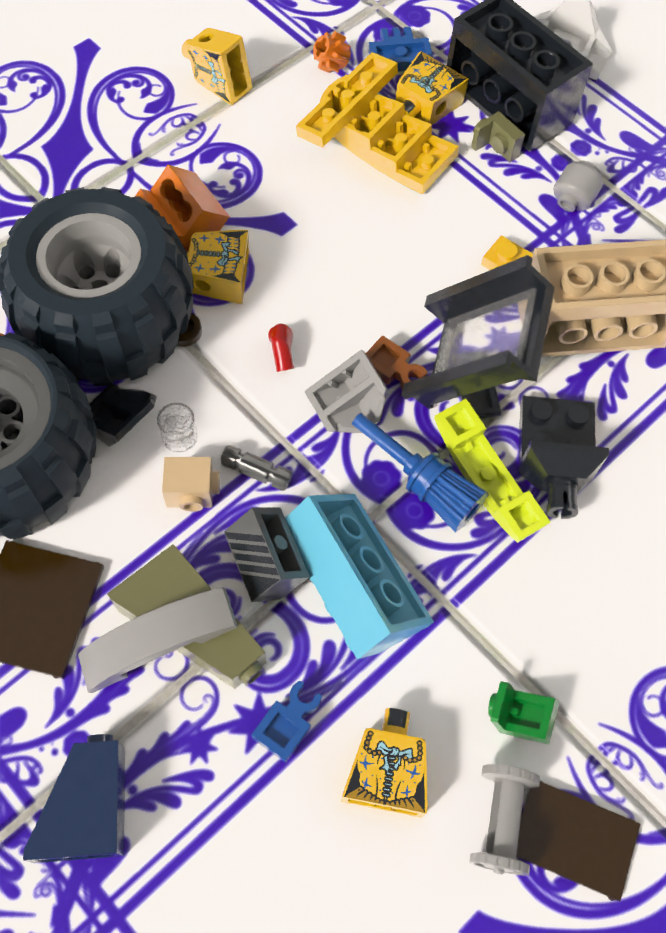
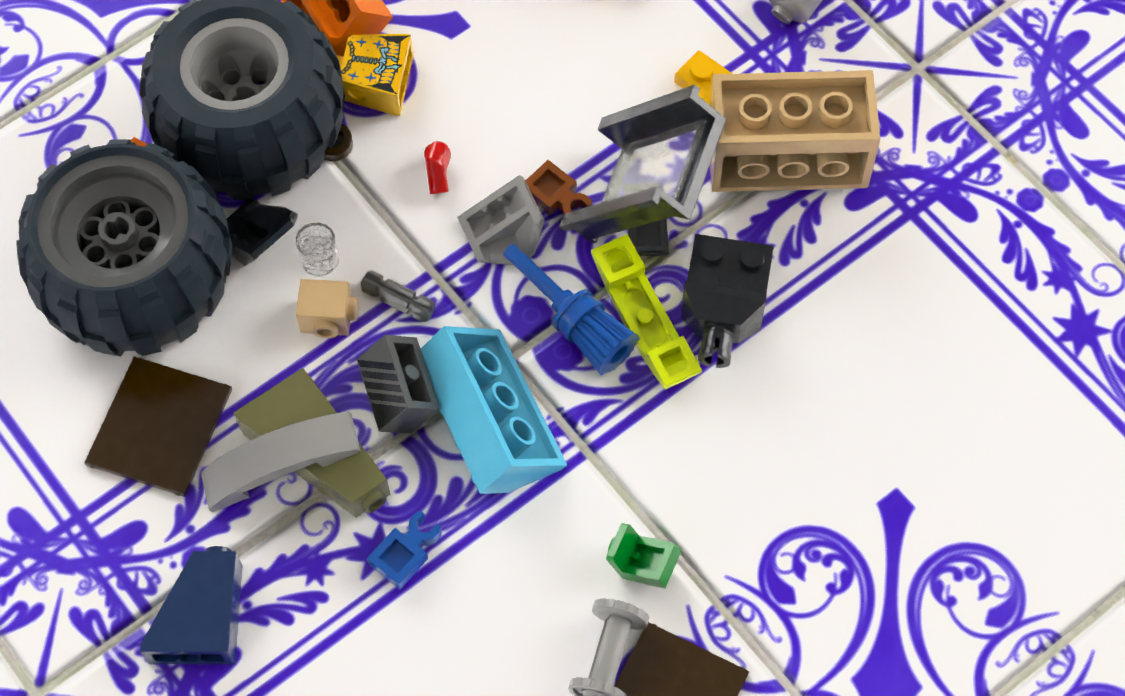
camera: 10 degrees right, 0 degrees up
(389, 769) = (499, 600): torso -> none

